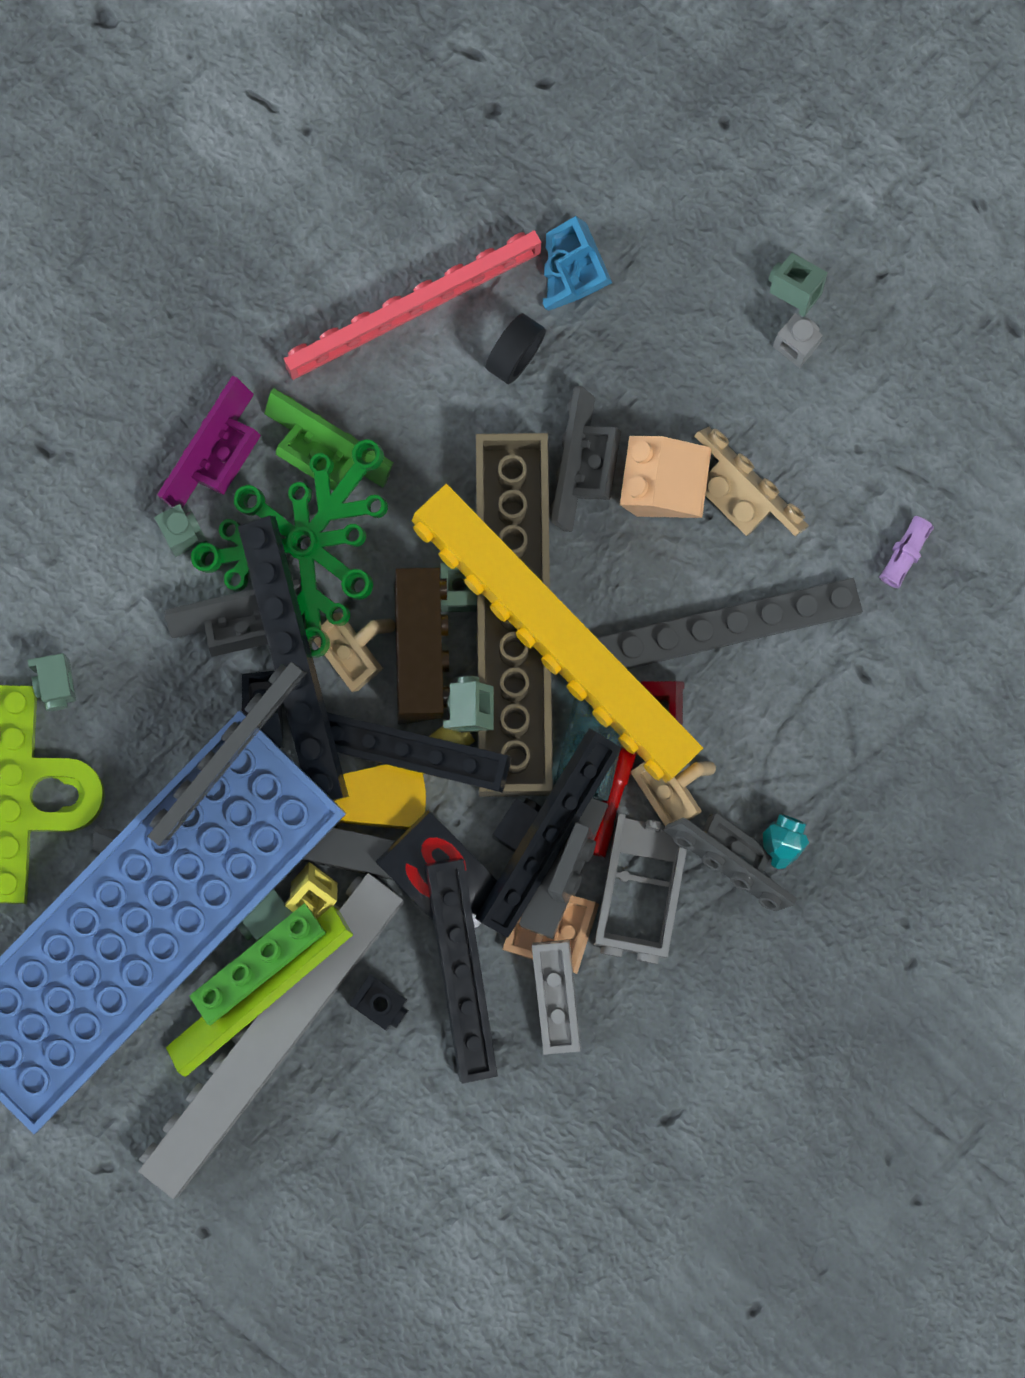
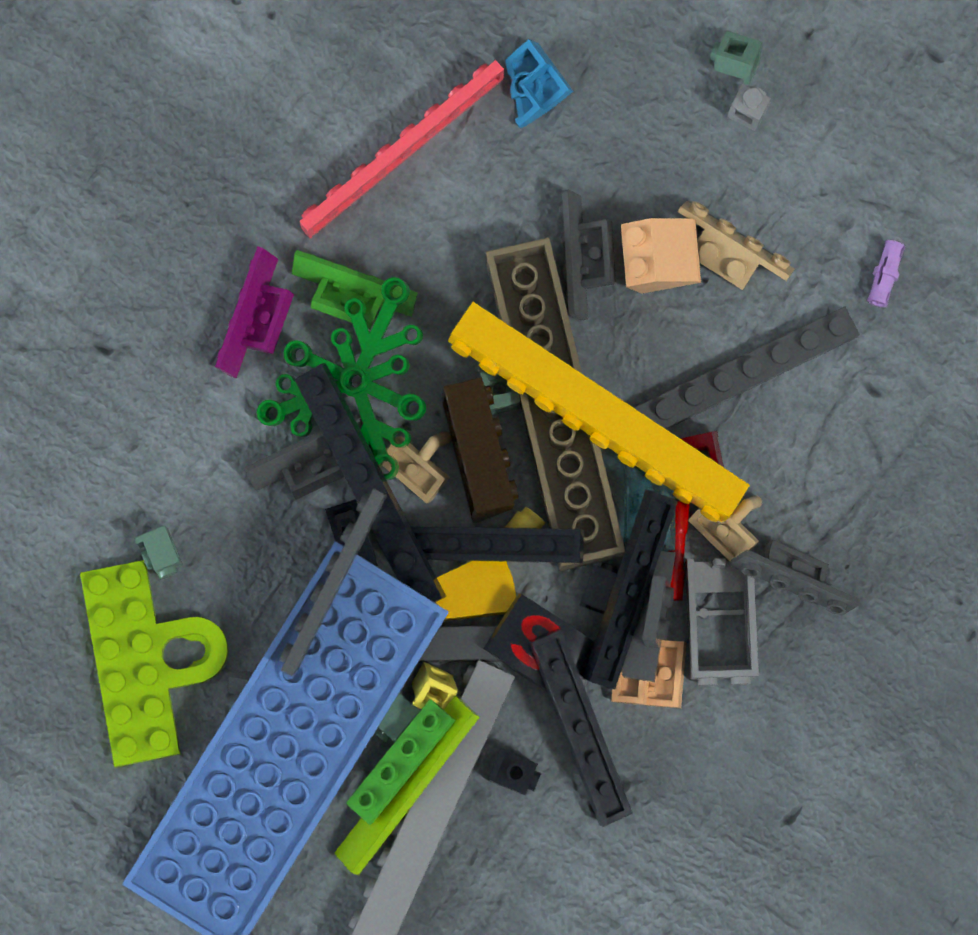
camera: 10 degrees left, 0 degrees up
(180, 529) = (241, 393): sand green brick -> none
(470, 705) = (536, 492): sand green brick -> none
(515, 348) = (502, 168): black tyre -> none
(556, 997) = (668, 732): light grey plate -> none
(785, 840) = (837, 551): teal rock -> none

